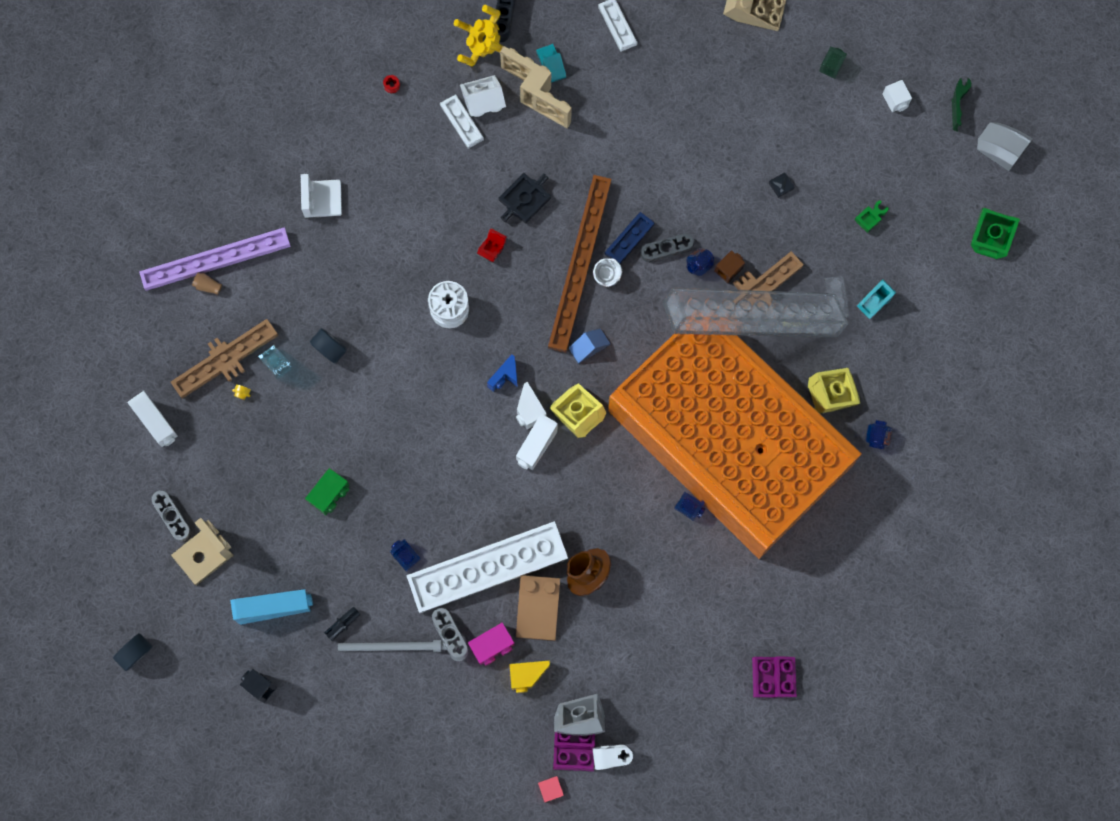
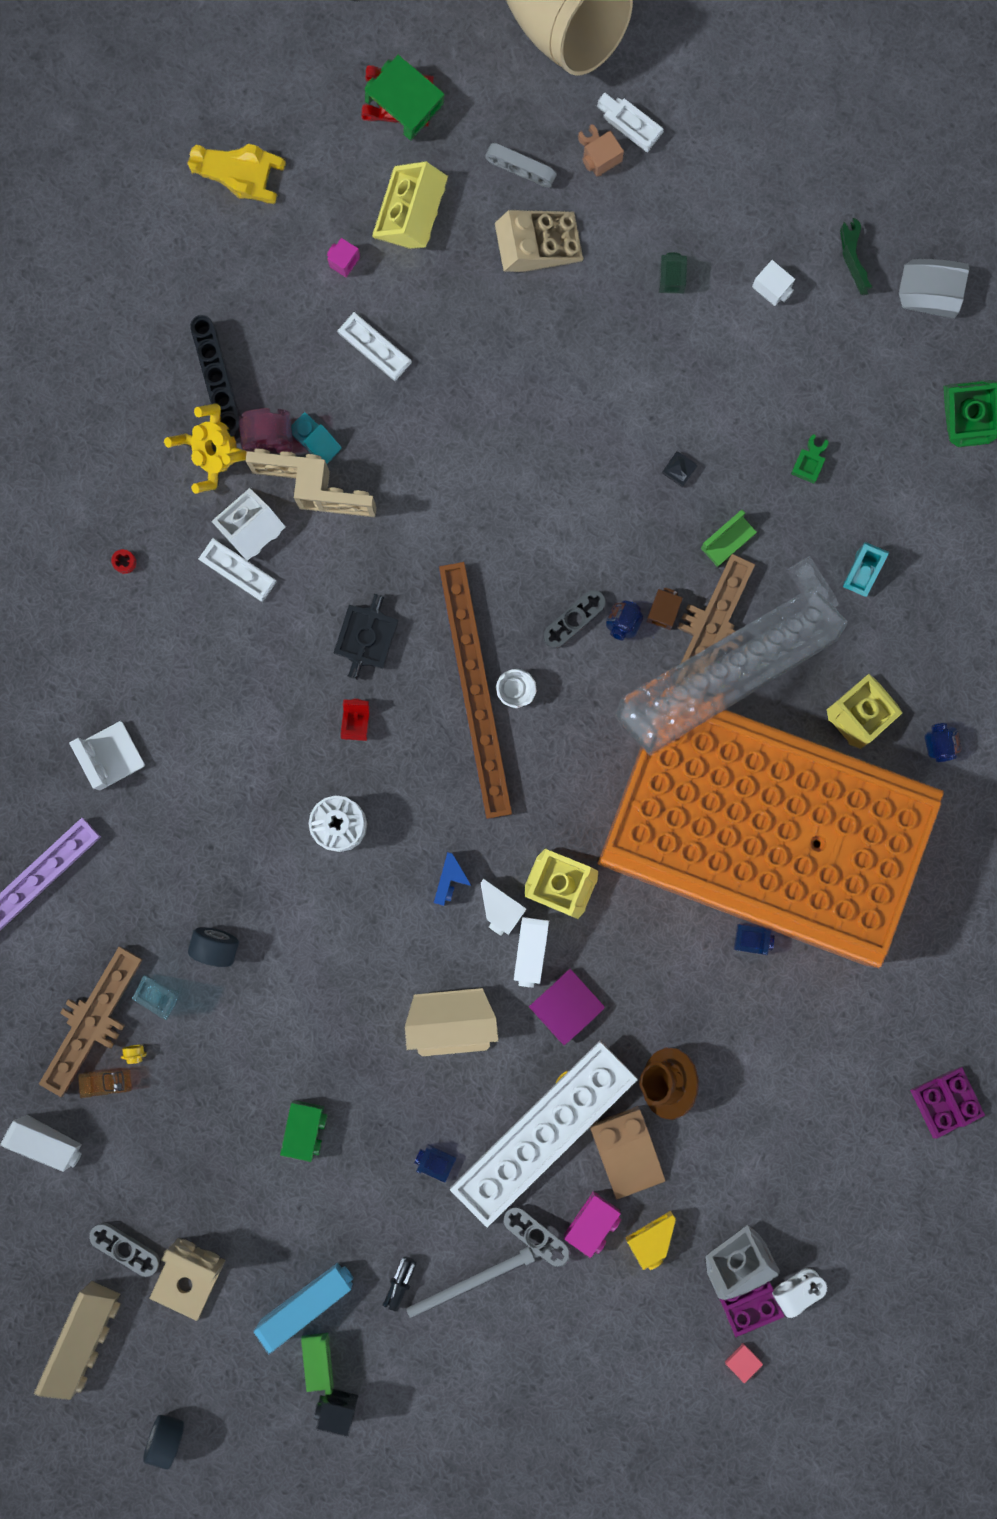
camera: 20 degrees left, 10 degrees up
(110, 559) = (78, 1342): none -> tan slope
(204, 283) = (19, 936): medium nougat cone -> none
(213, 401) = (104, 1082): none -> clear orange leg
(261, 650) = (317, 1363): none -> bright green panel
(459, 466) = (450, 1022): none -> tan helmet
(523, 40) = (266, 430): none -> clear pink brick
(543, 492) = (566, 1007): none -> magenta slope
(588, 345) = (536, 791): medium blue slope -> none
(629, 238) = (522, 629): dark blue plate -> none
(793, 240) = (728, 539): none -> bright green panel

